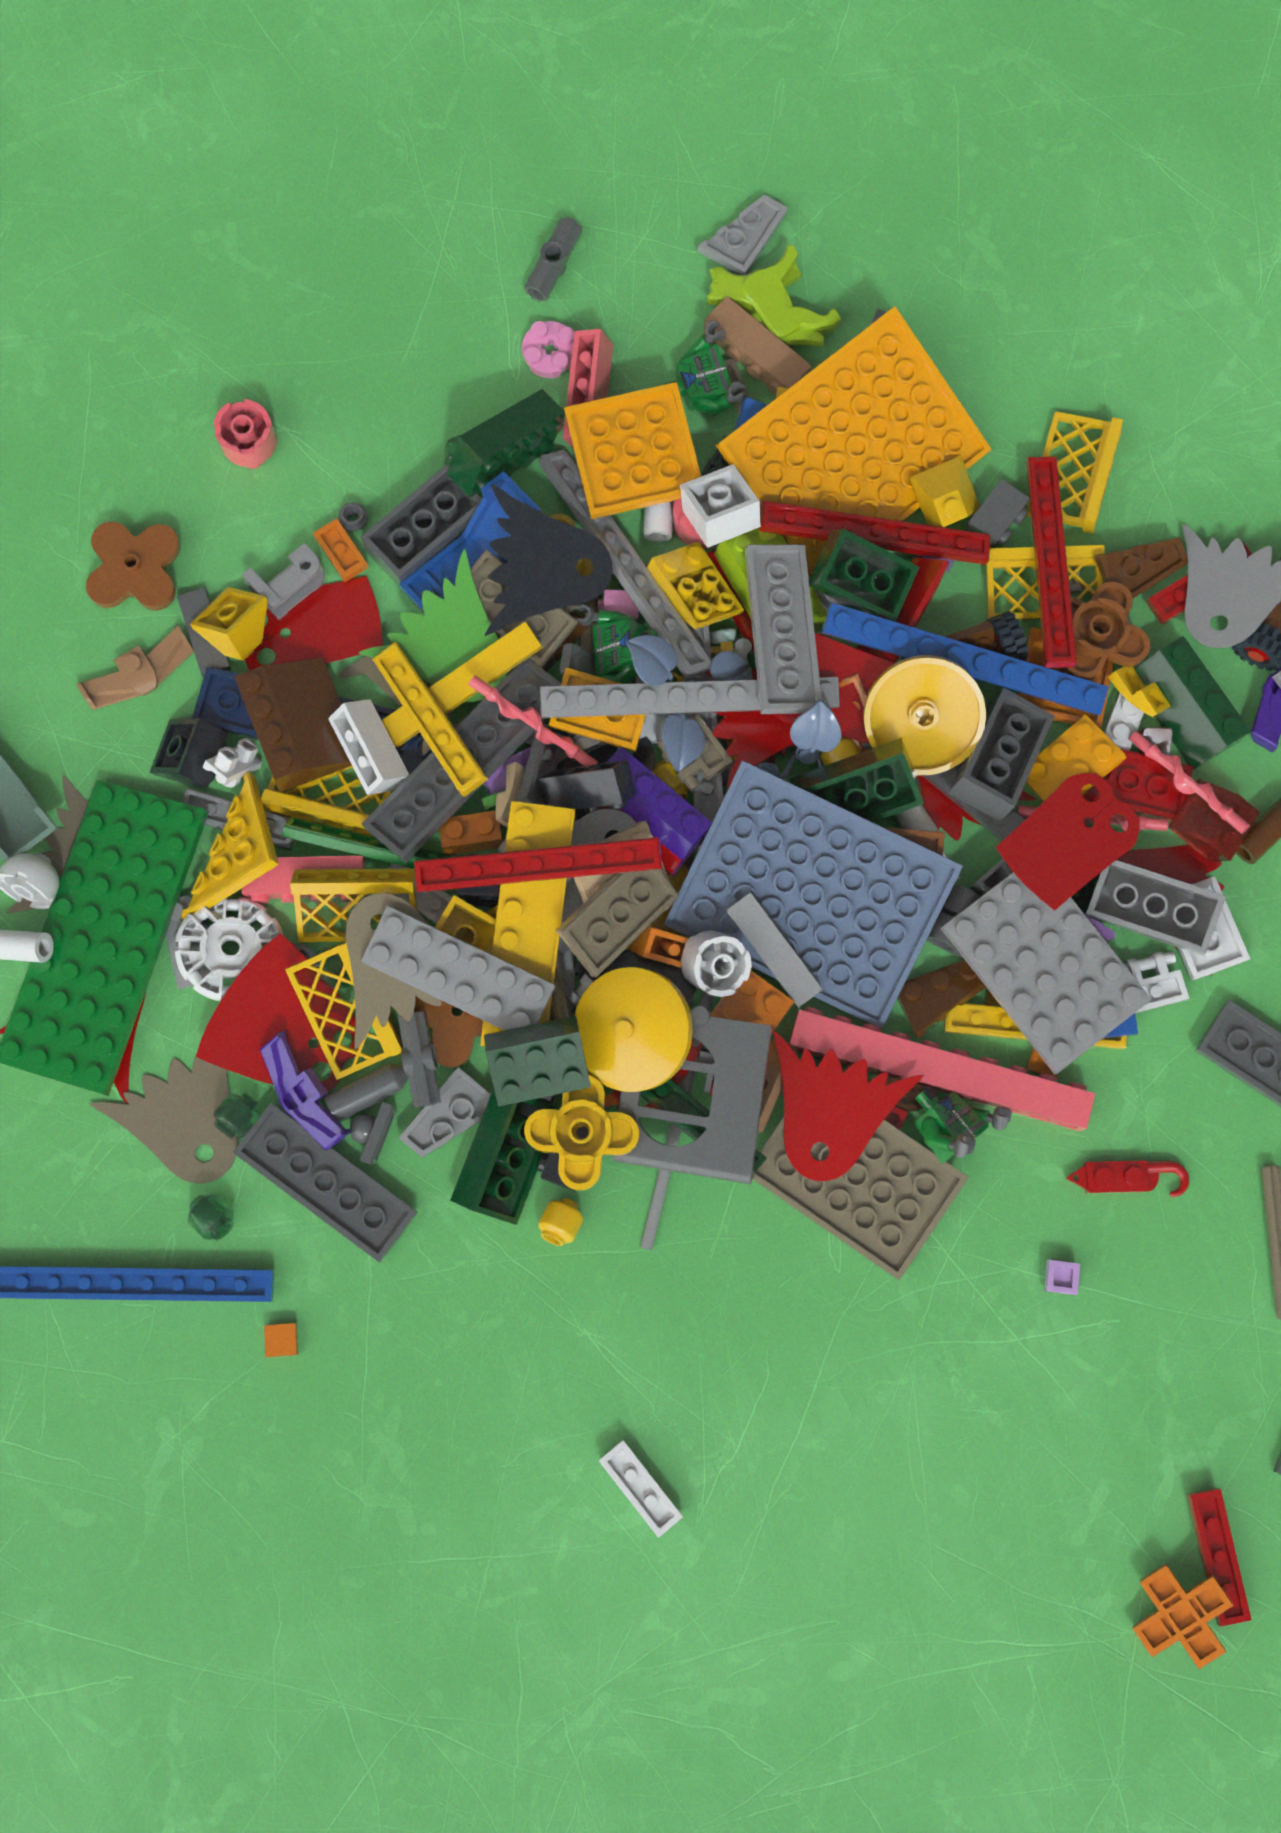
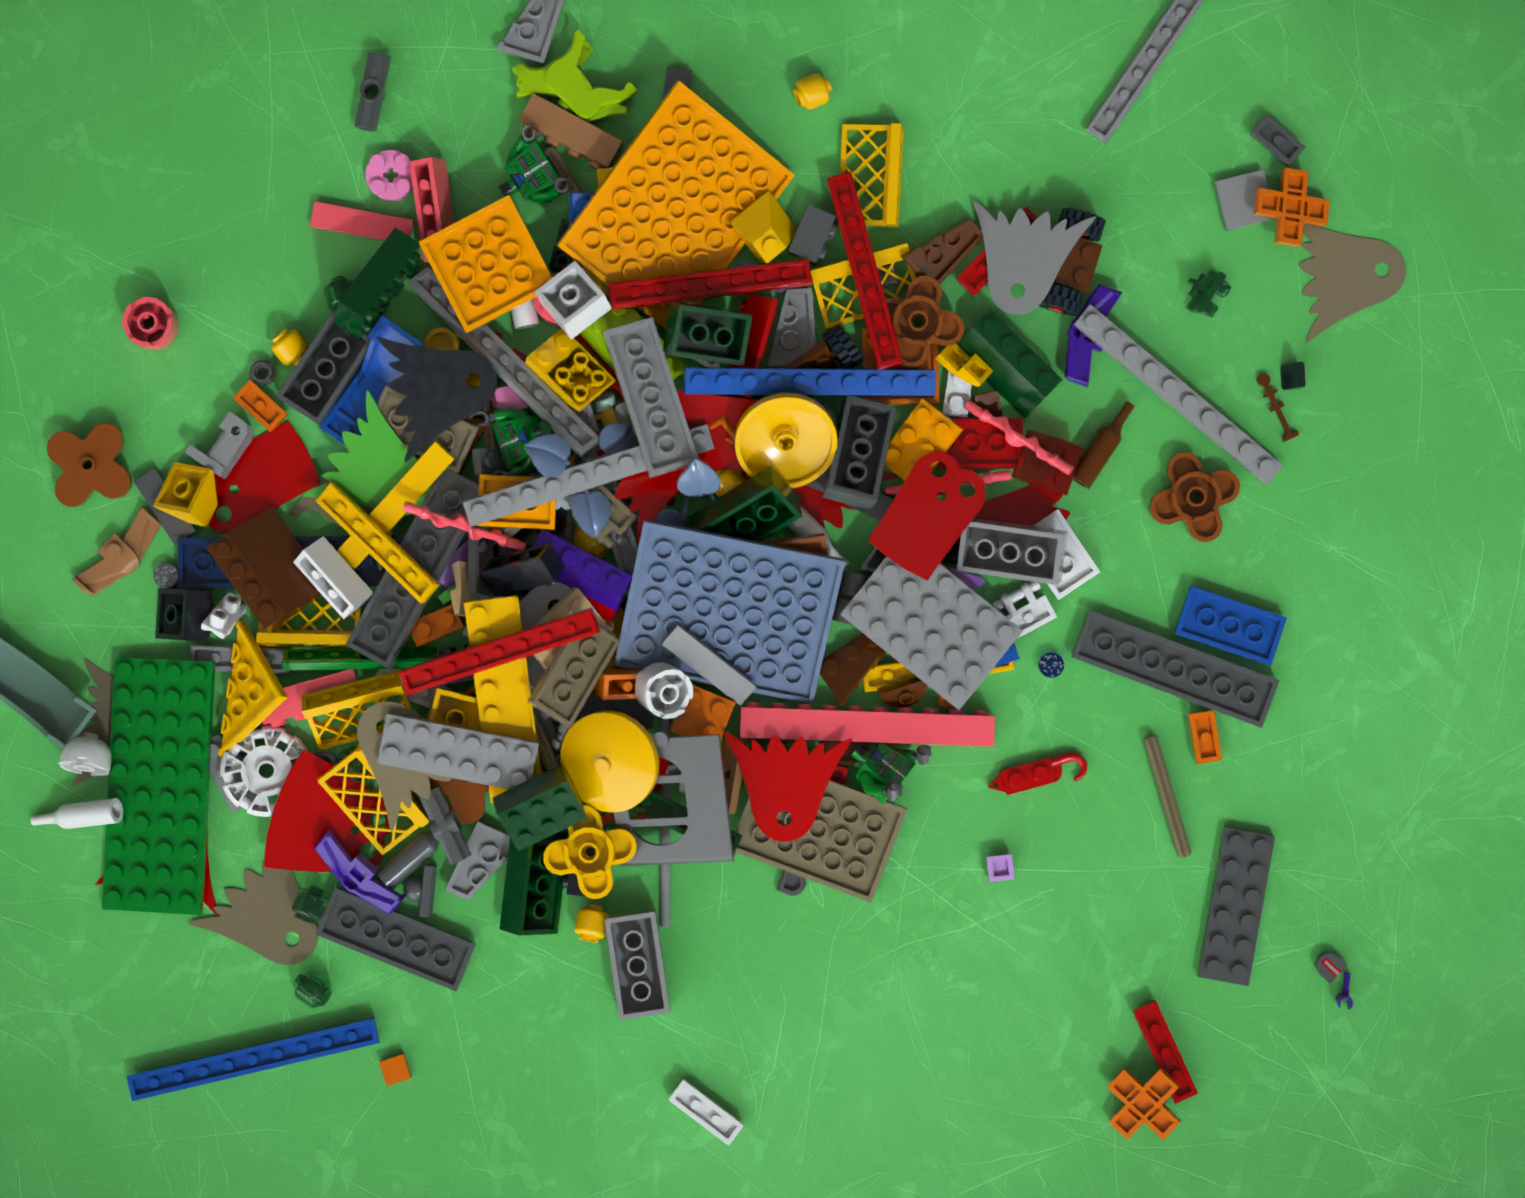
camera: 10 degrees left, 10 degrees up
(181, 705) = (166, 575): none -> dark grey tile
(388, 492) = (289, 346): none -> yellow head
(491, 383) = (357, 221): none -> coral tile
(603, 1284) = (637, 964): none -> light grey brick
(808, 1234) = (791, 884): none -> dark grey tile
(958, 602) = (795, 328): none -> light grey wing
(992, 1042) = (903, 693): none -> reddish brown plate
(1030, 367) = (812, 91): none -> yellow head
(1169, 1053) = (1051, 665): none -> clear blue tile

